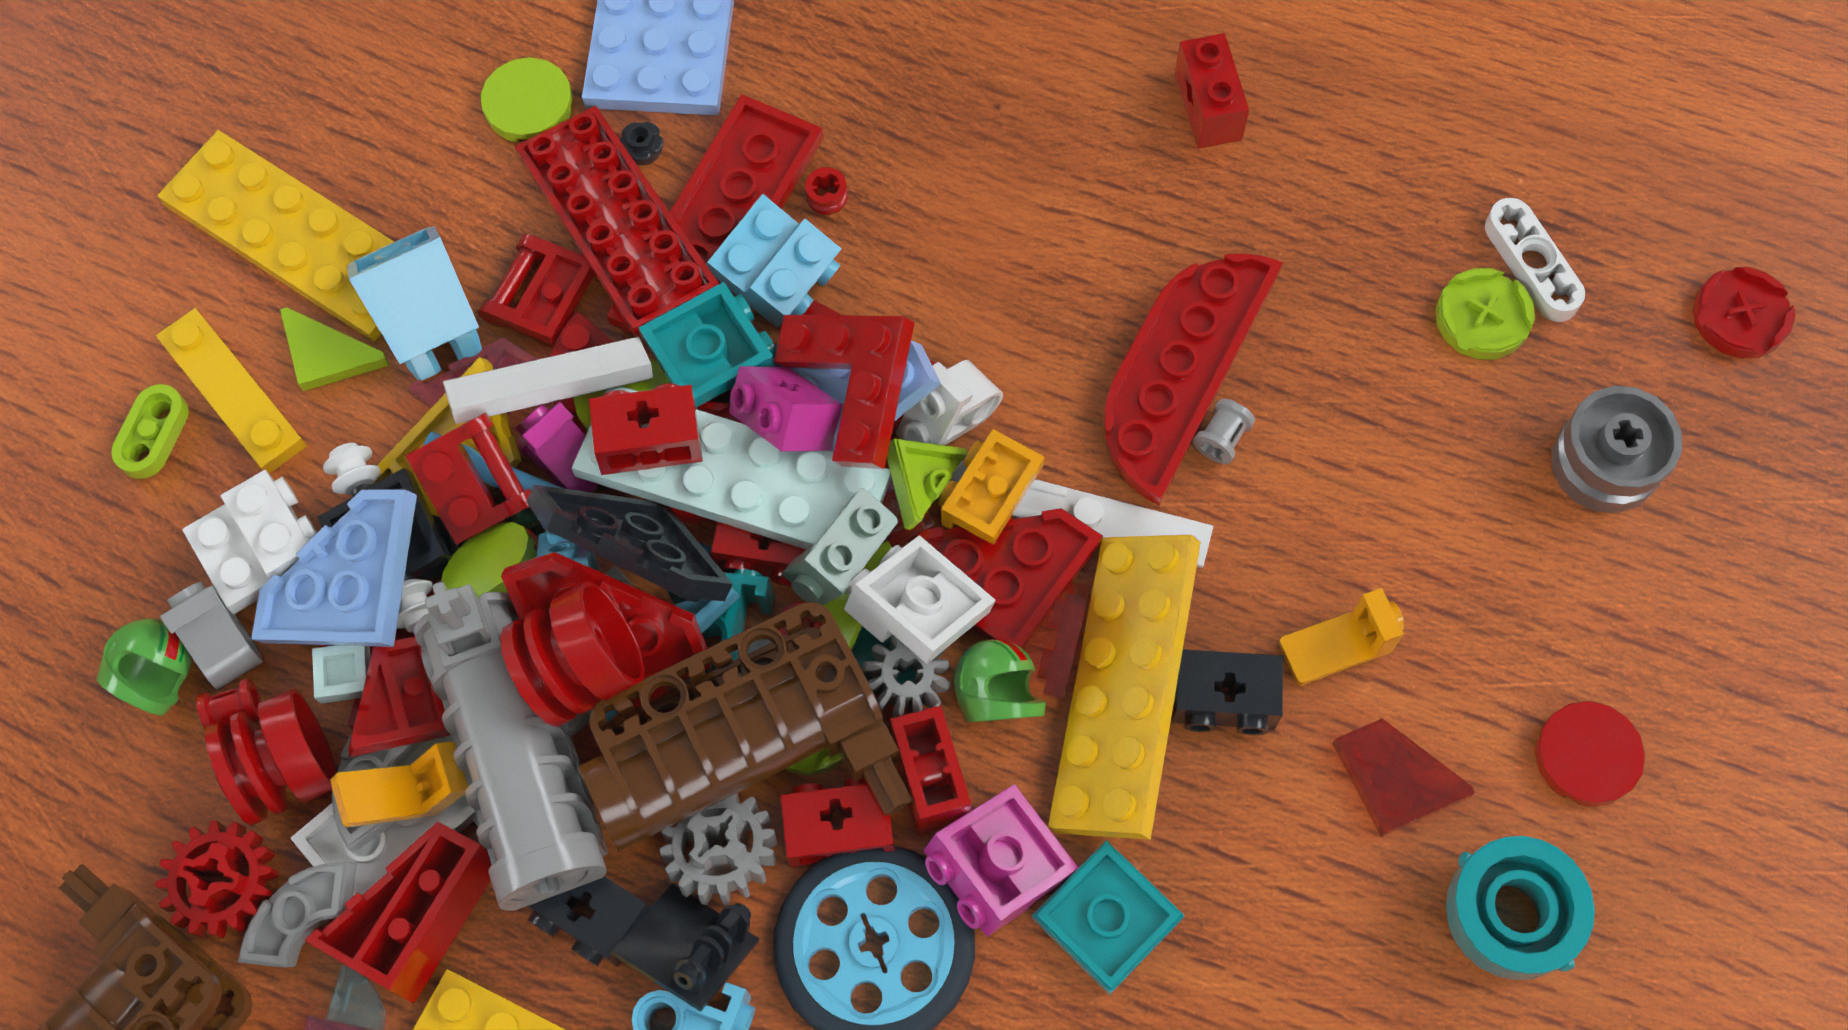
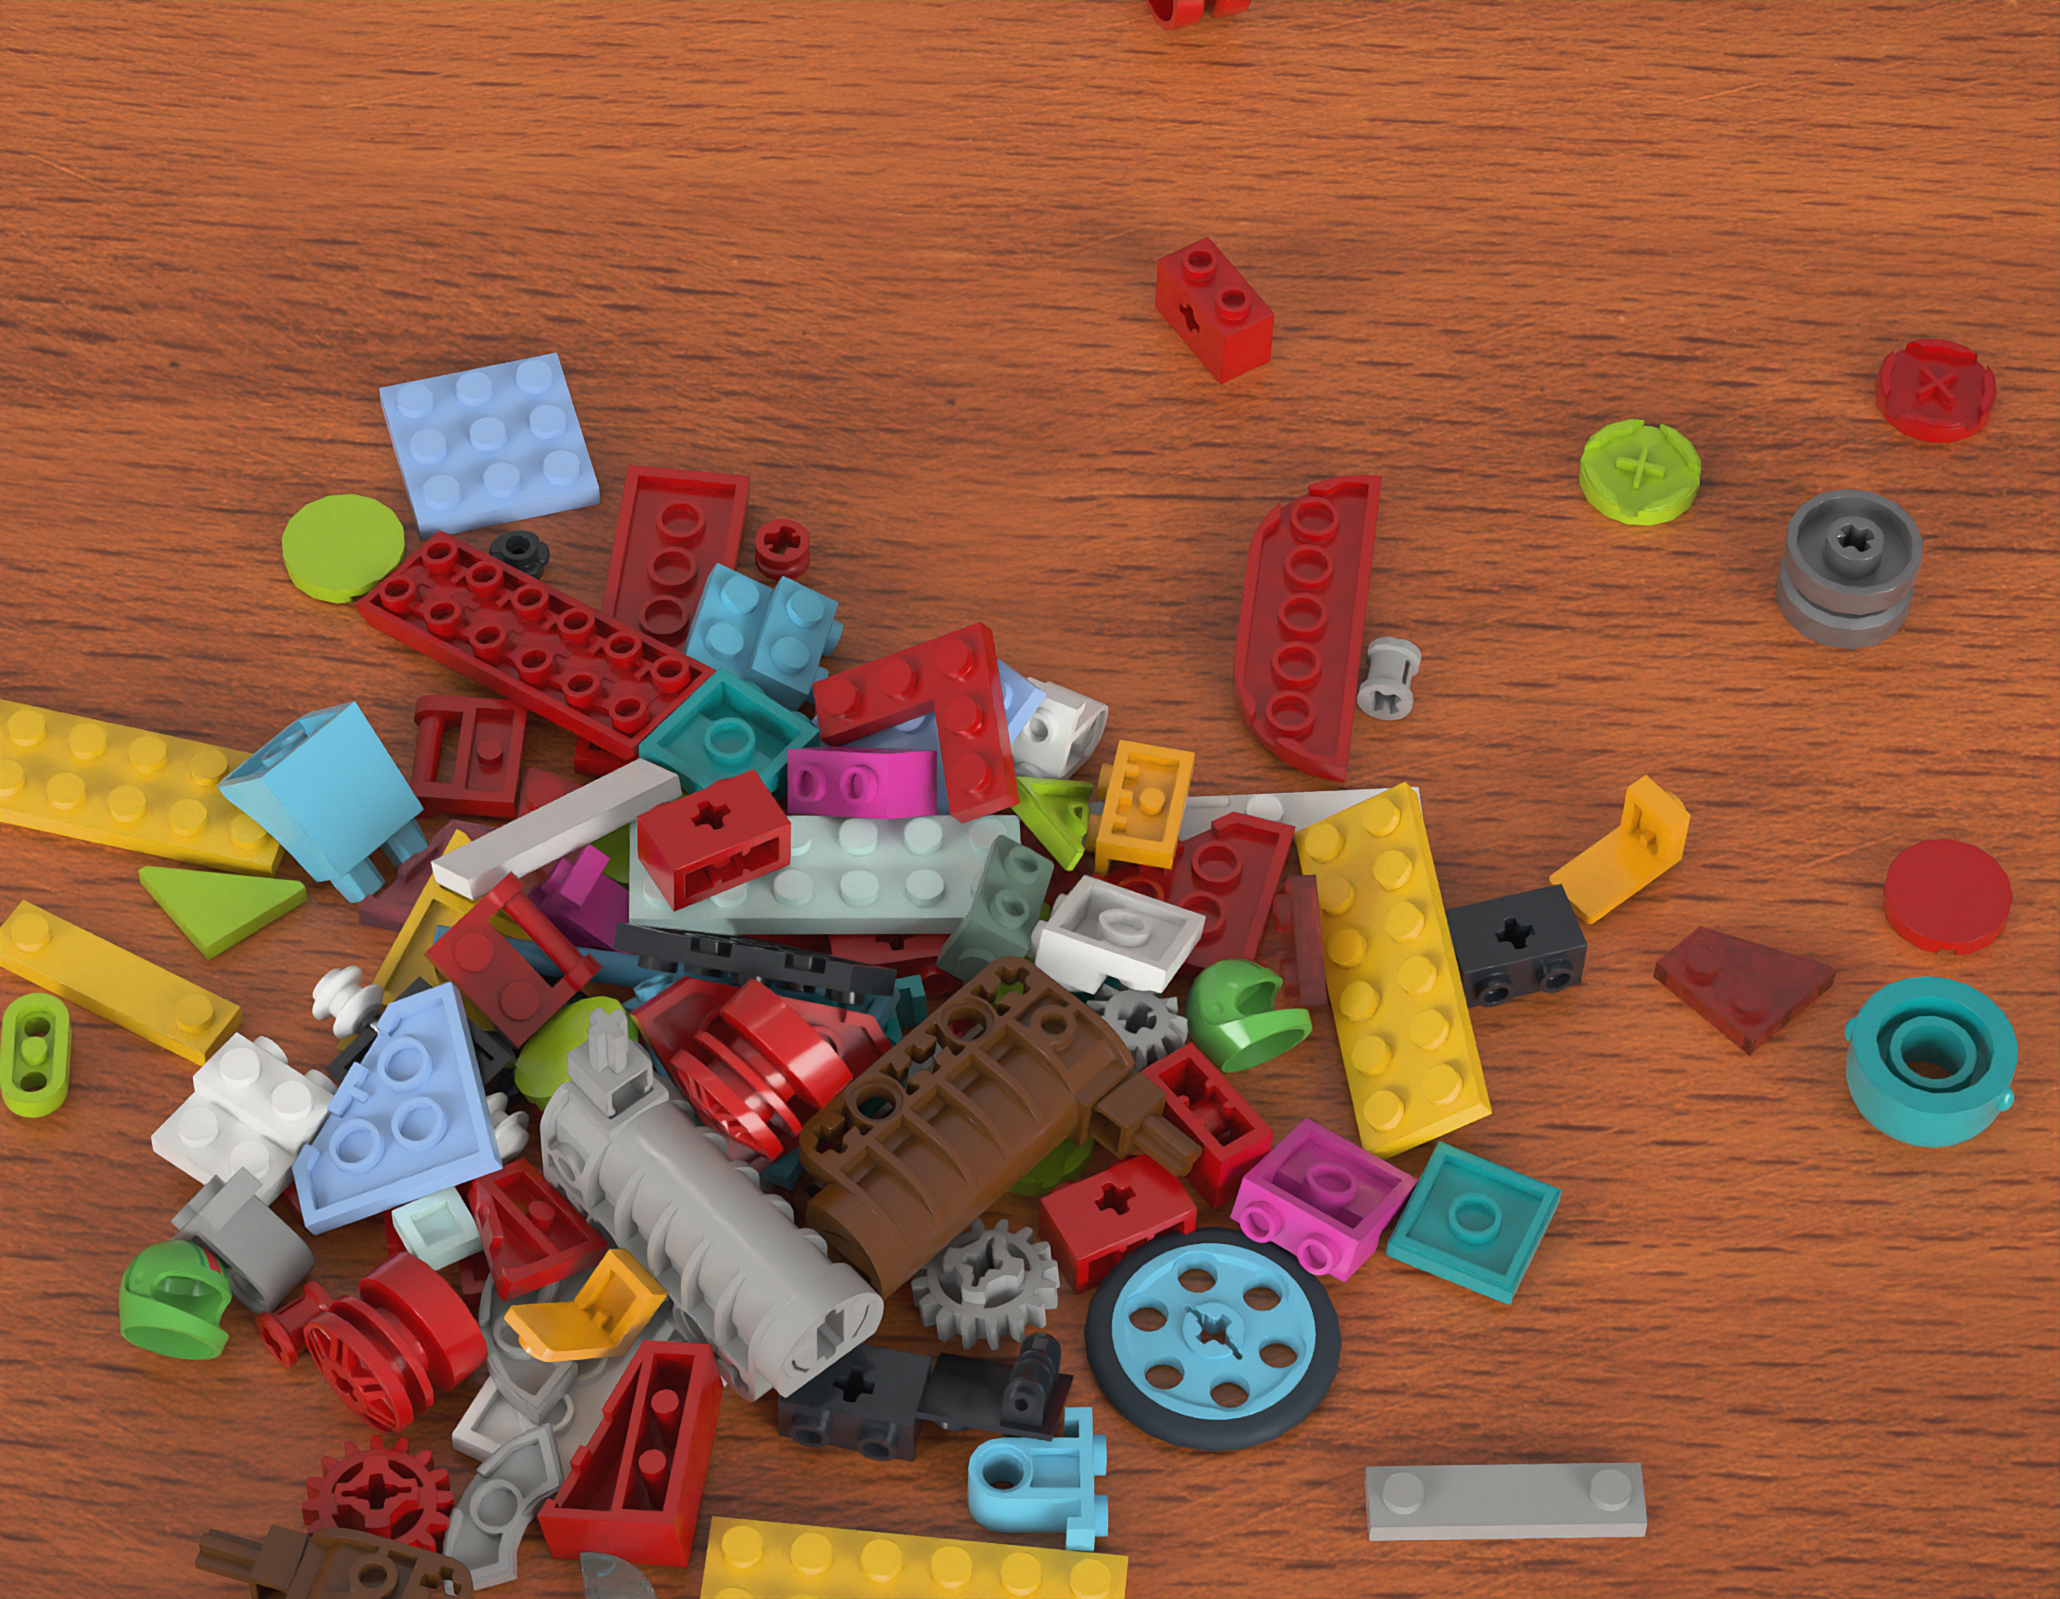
camera: 25 degrees left, 15 degrees down
(1534, 238) = (1664, 374): white beam -> none

